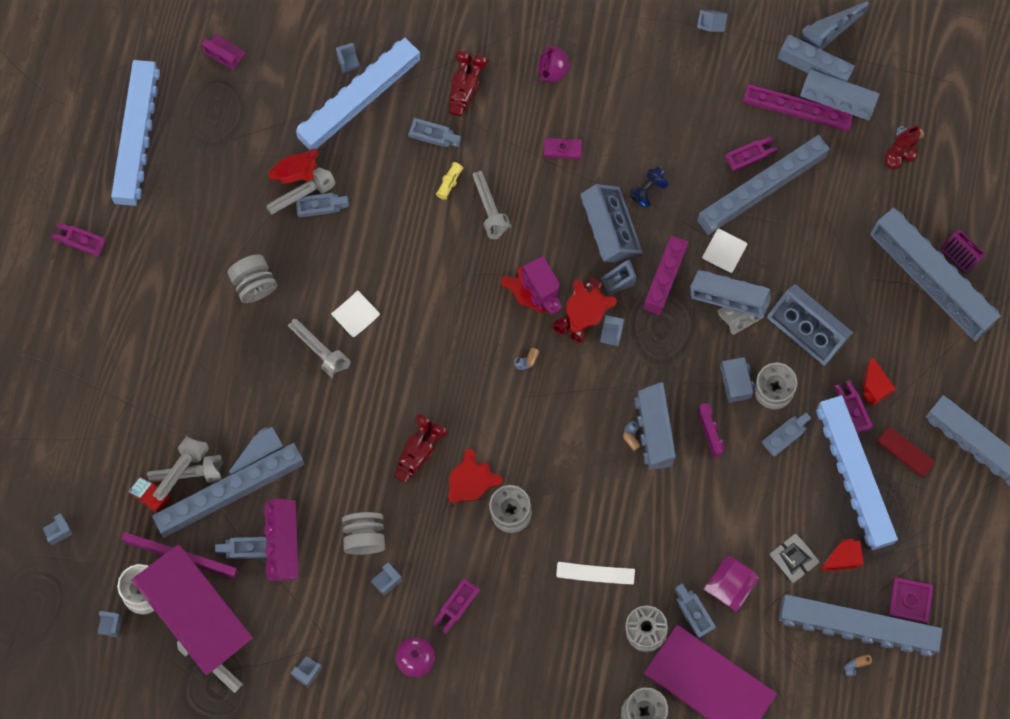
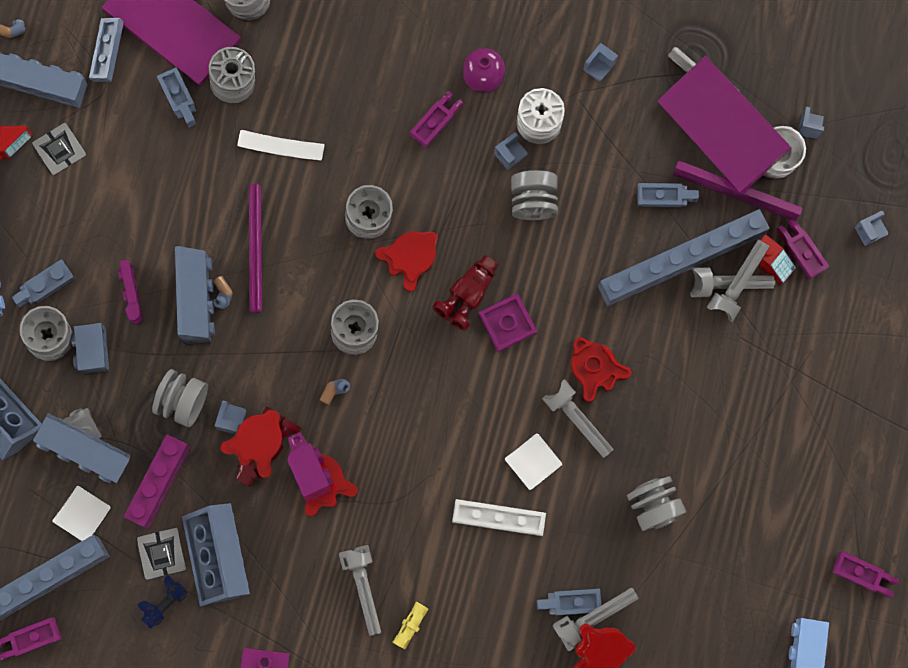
camera: 175 degrees left, 5 degrees up
(120, 505) = (803, 250): none -> magenta hinge
(261, 446) = (644, 304): sand blue slope -> none
(281, 540) = (625, 197): magenta brick -> none
(304, 394) = (595, 367): none -> red tile
(368, 618) = (538, 127): none -> white wheel
(382, 267) = (499, 517): none -> white tile
(382, 427) = (507, 322): none -> magenta tile
(505, 401) = (350, 315): none -> light grey wheel
(608, 478) = (255, 249): none -> magenta axle
(619, 278) = (214, 482): sand blue slope -> none
(655, 225) = (161, 553): none -> sticker
(655, 339) = (175, 396): none -> light grey wheel
(732, 583) = (133, 122): magenta slope -> none
(765, 650) = (106, 49): none -> sand blue plate

